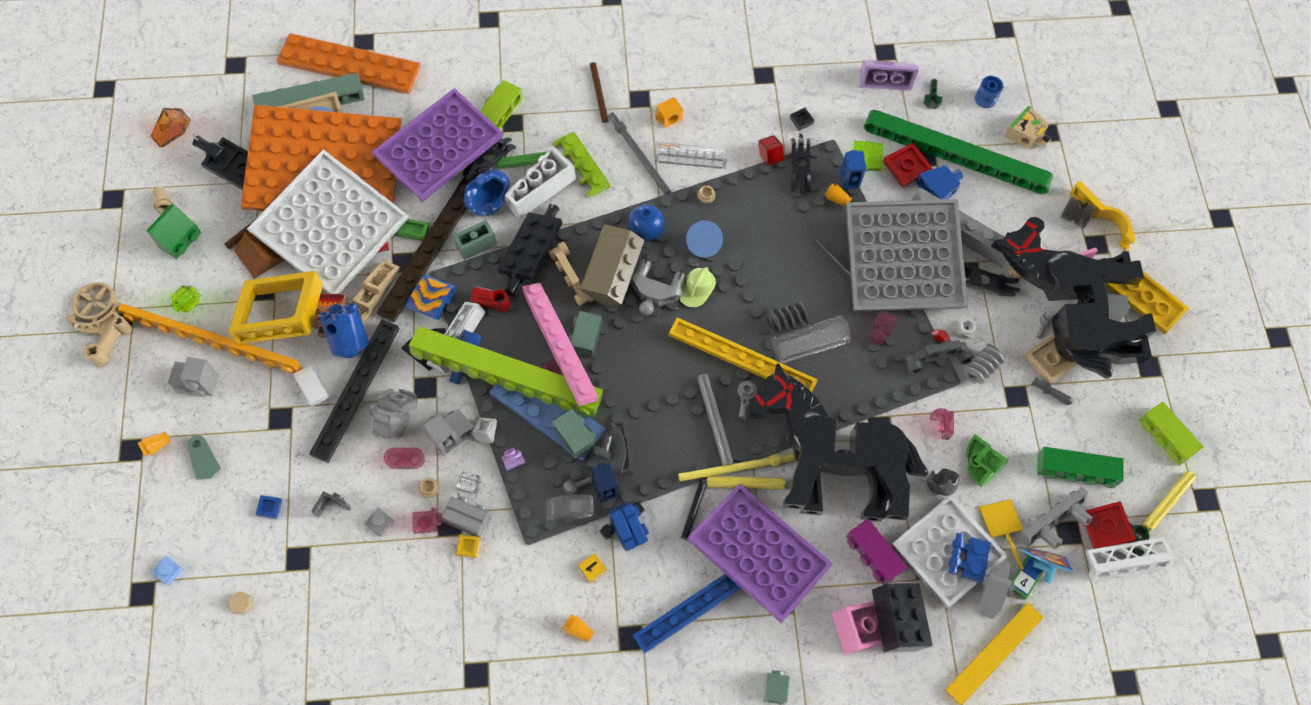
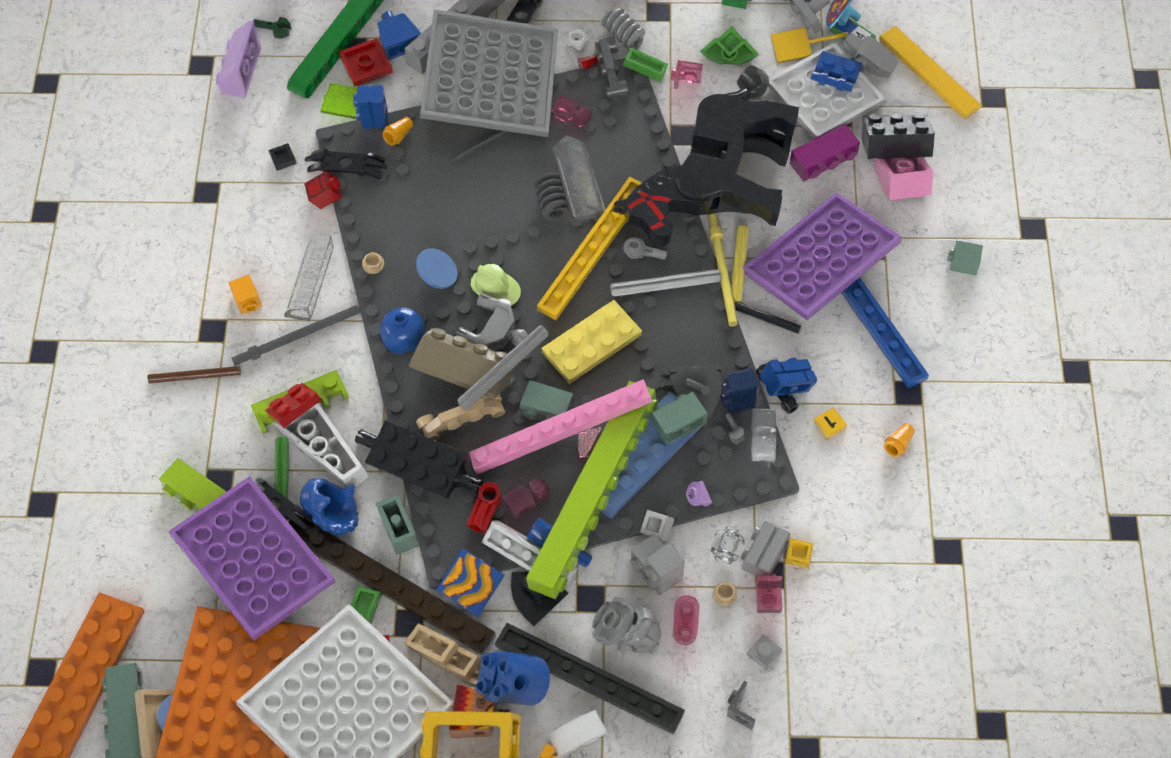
camera: 80 degrees left, 5 degrees down
(499, 324) = (521, 500): none -> clear pink plate
(566, 152) = (292, 405): none -> red plate
(603, 290) = (502, 367): none -> light grey axle
(651, 365) = (591, 341): none -> light yellow plate
(947, 386) = (645, 64): none -> bright green tile

